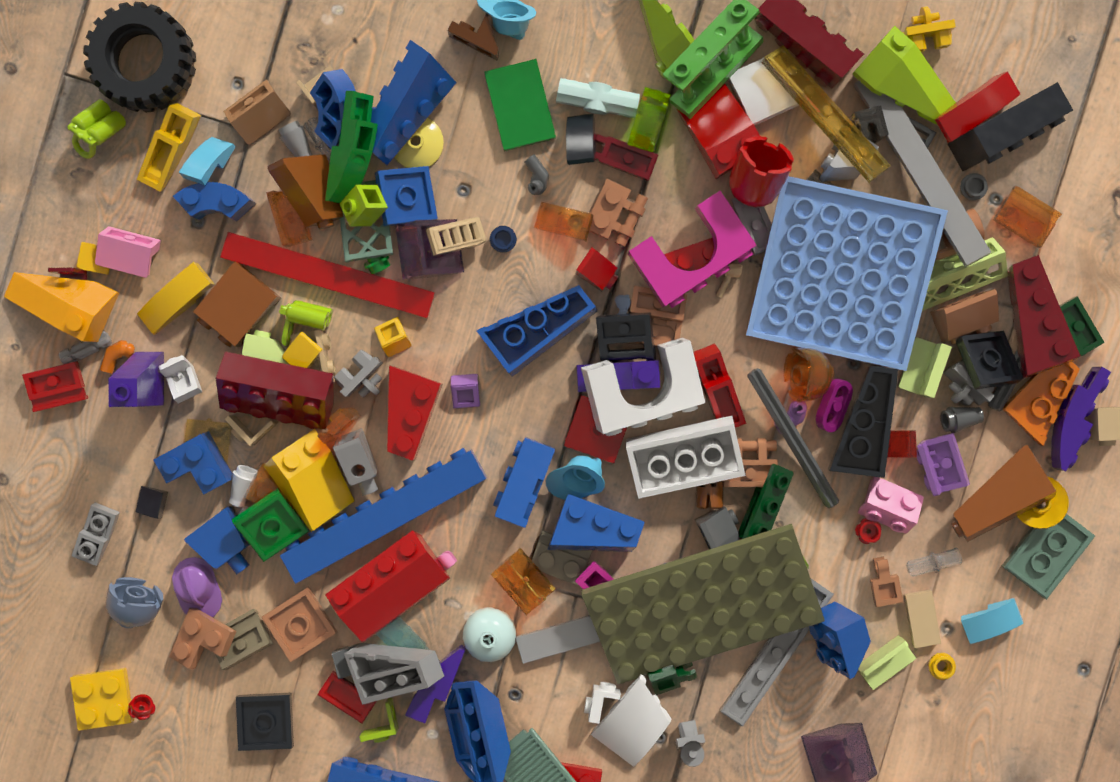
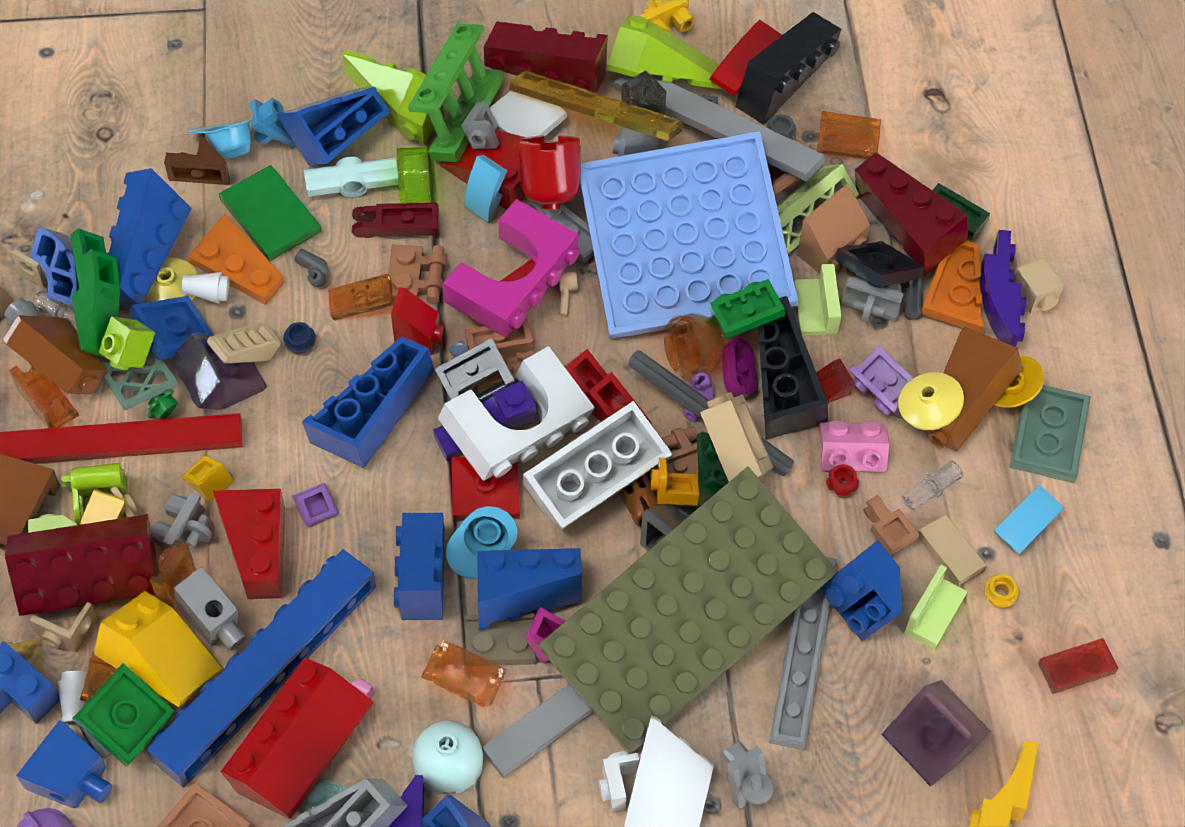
camera: 25 degrees left, 30 degrees down
(446, 164) = (209, 286): none -> white cone
(477, 143) = (233, 254): none -> orange wing
(553, 22) = (267, 124): none -> dark azure hips
(580, 139) = (347, 212): black slope -> none
(601, 42) = (333, 123): none -> blue wedge
(670, 677) = (690, 717): dark green plate -> none
(701, 160) = (483, 187): none -> medium azure slope
(719, 96) = (481, 127): none -> light grey bracket
(736, 499) = (674, 487): none -> light orange bracket
(799, 483) = (735, 436): none -> tan window
(860, 371) = (746, 308): none -> green bracket
(959, 418) = (882, 334): dark grey cone -> none
(966, 517) = (932, 411): none -> light yellow dish
(966, 746) = (1078, 665): none -> clear red plate

